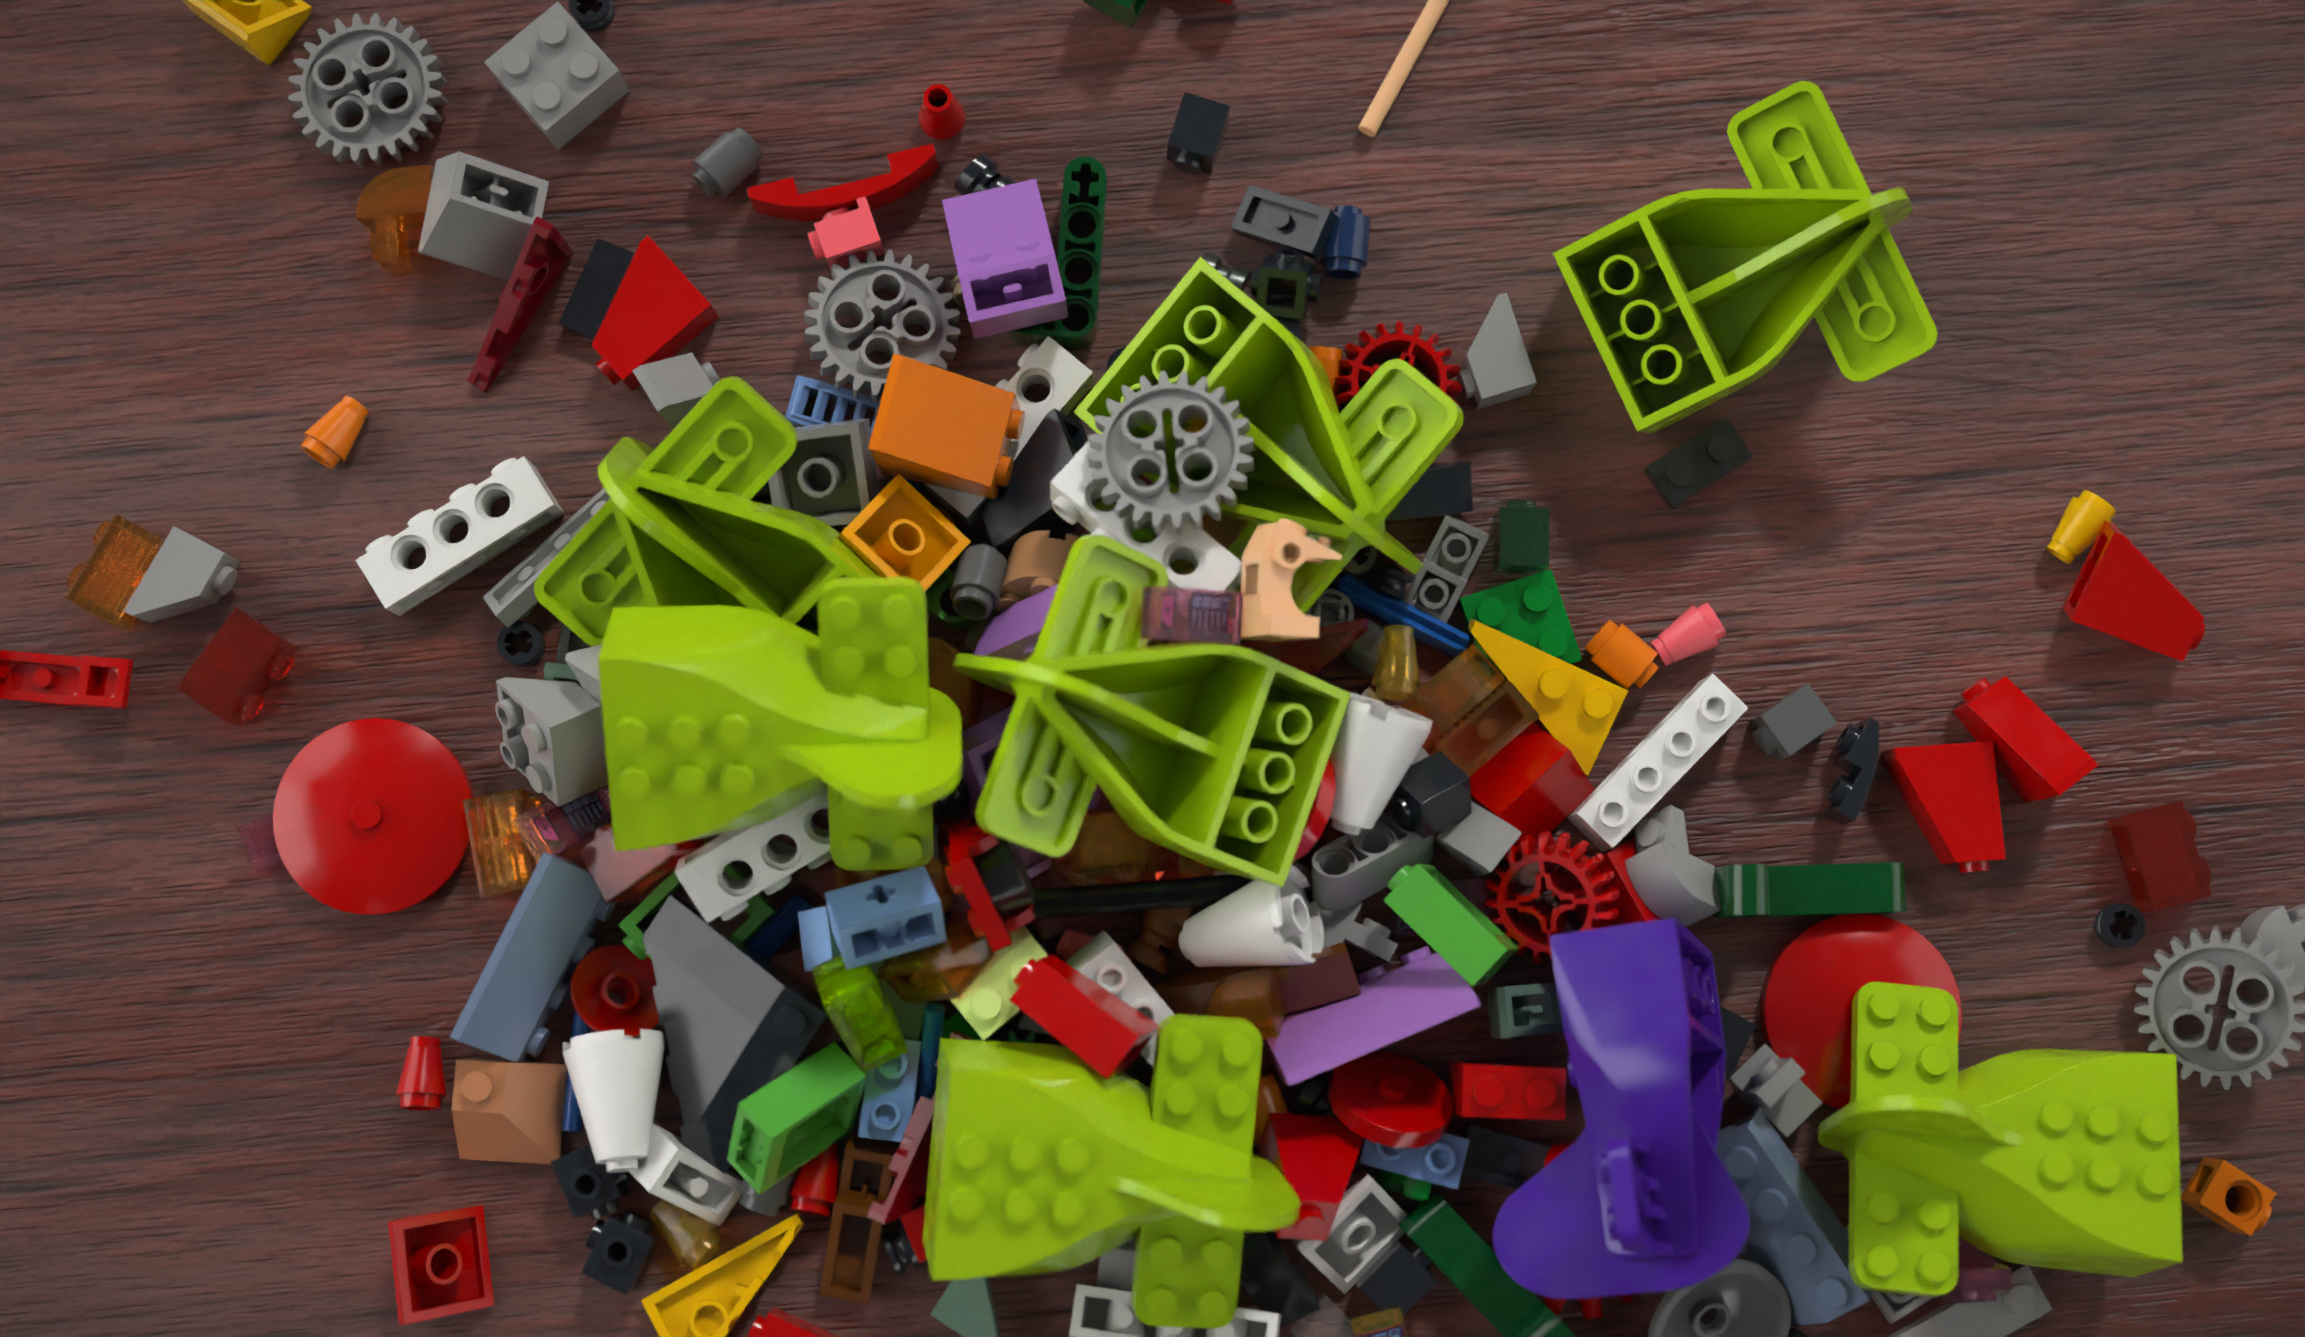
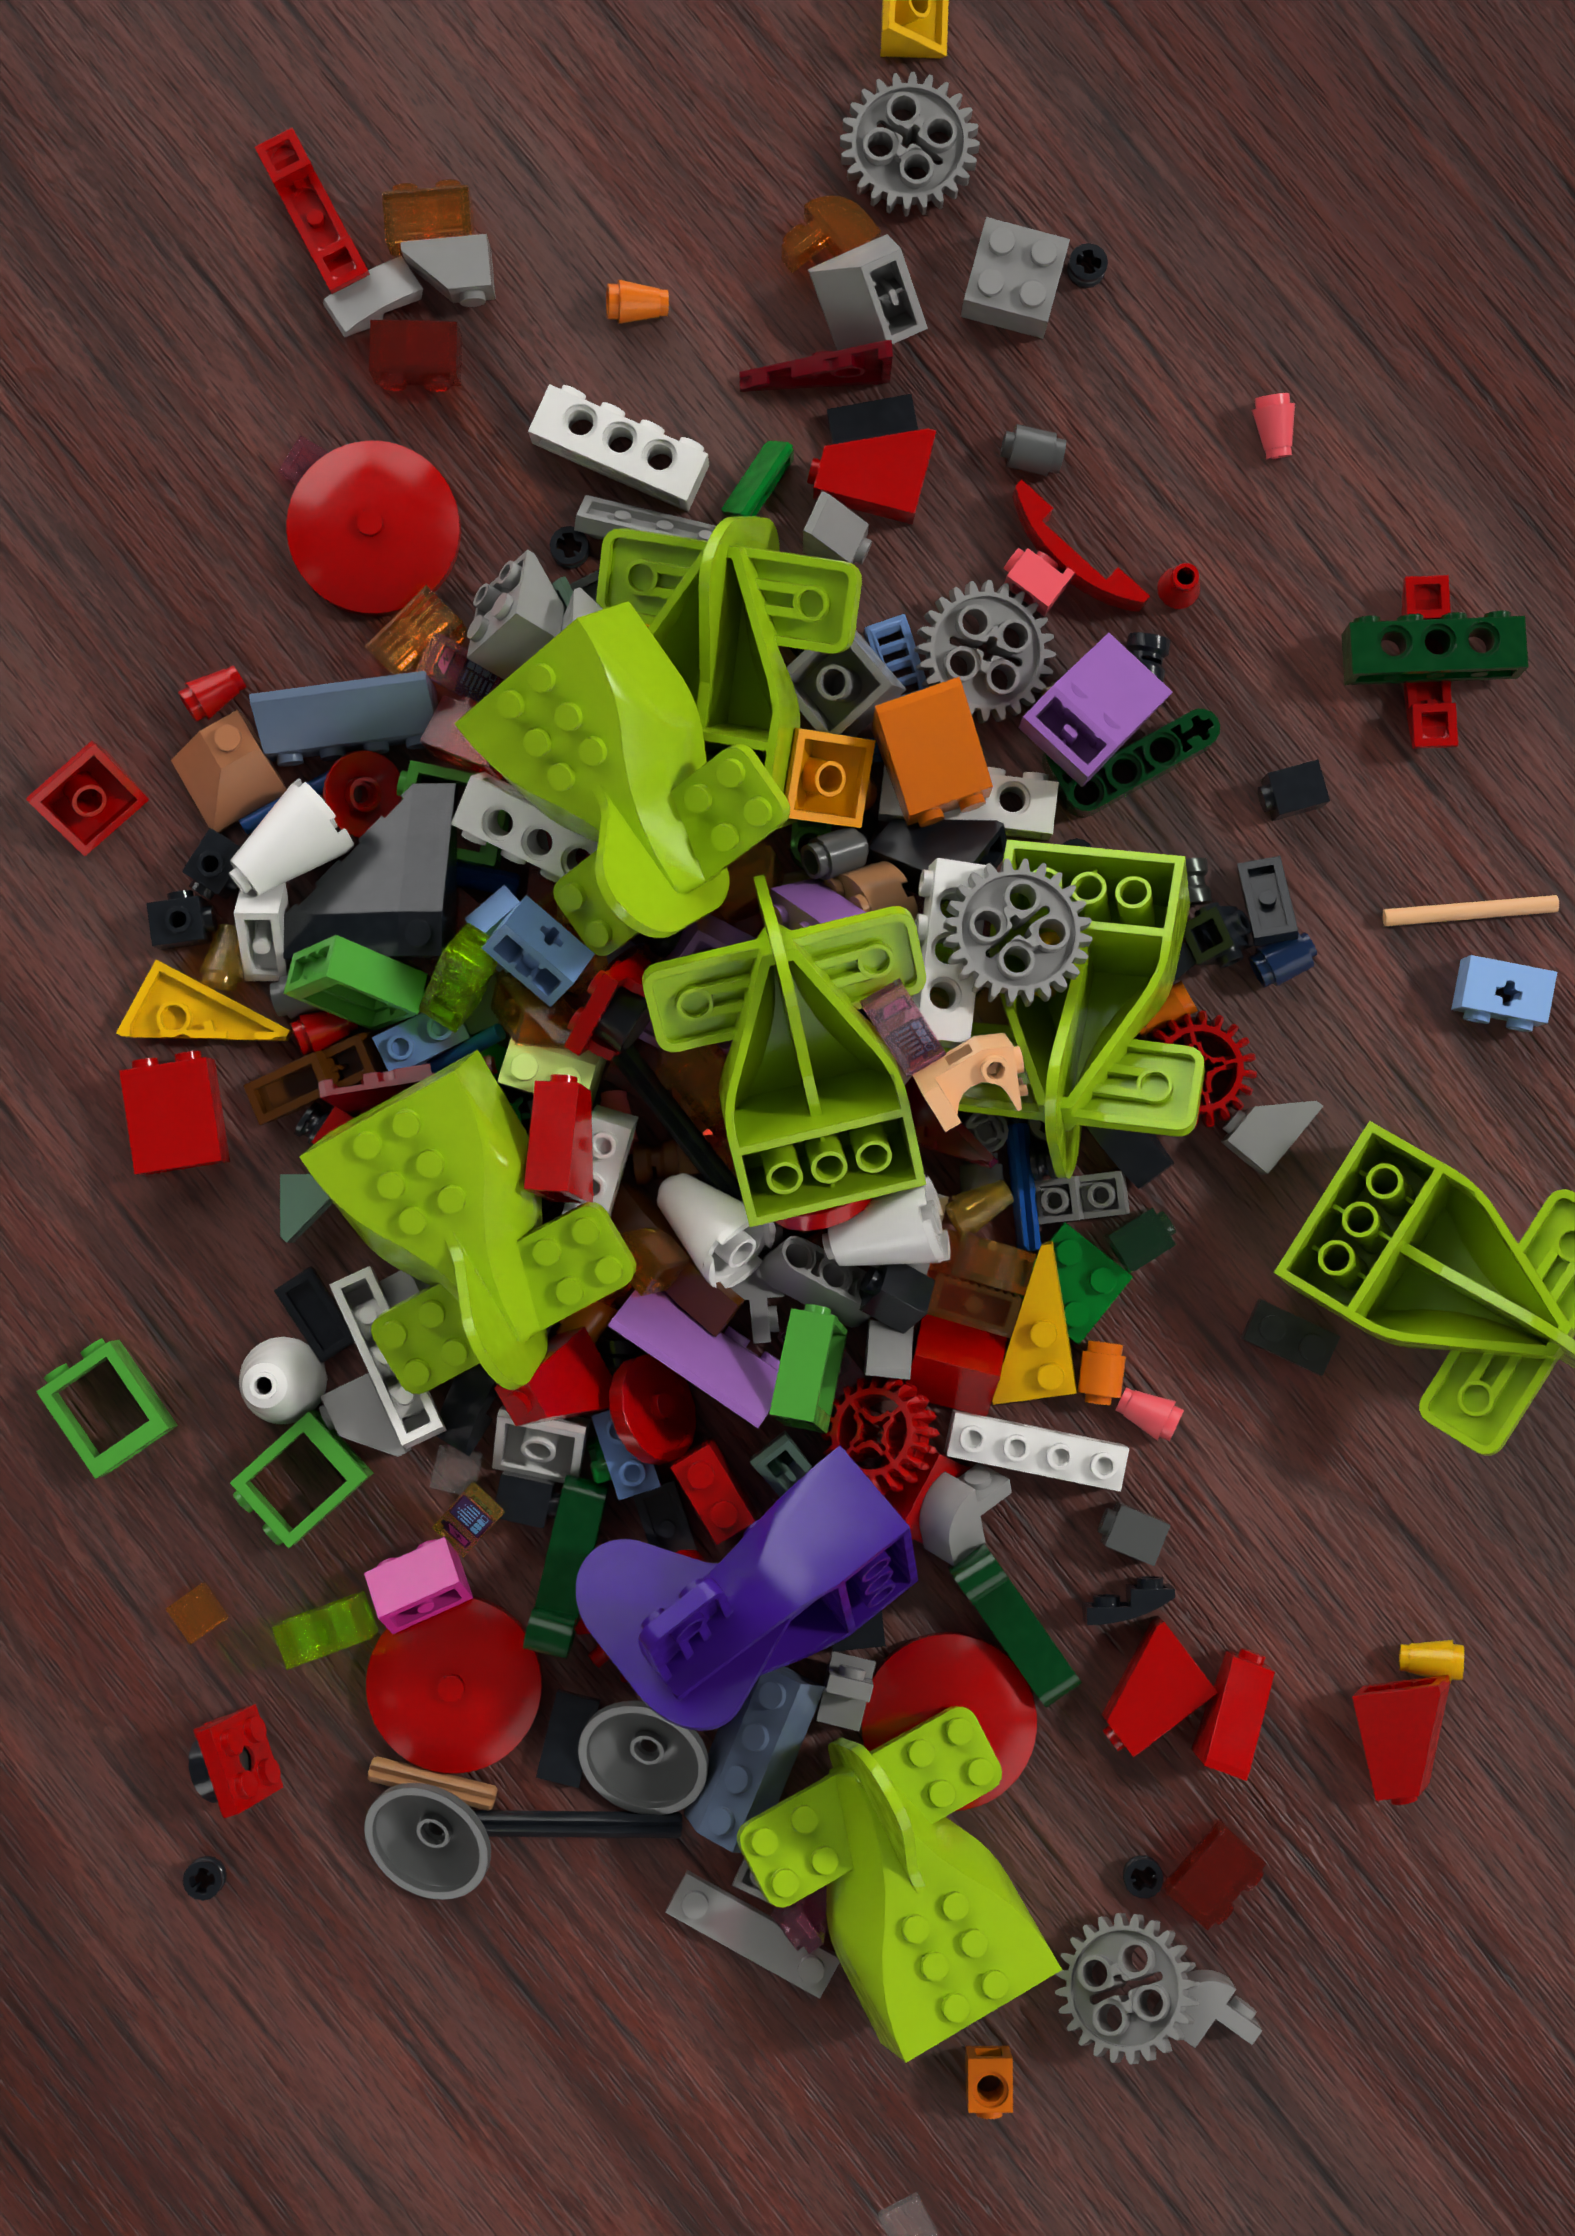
camera: 60 degrees right, 5 degrees up
(157, 659) = (368, 299): none -> light grey slope
(579, 426) = (759, 479): none -> green slope
(1514, 45) = (1529, 990): none -> light blue brick

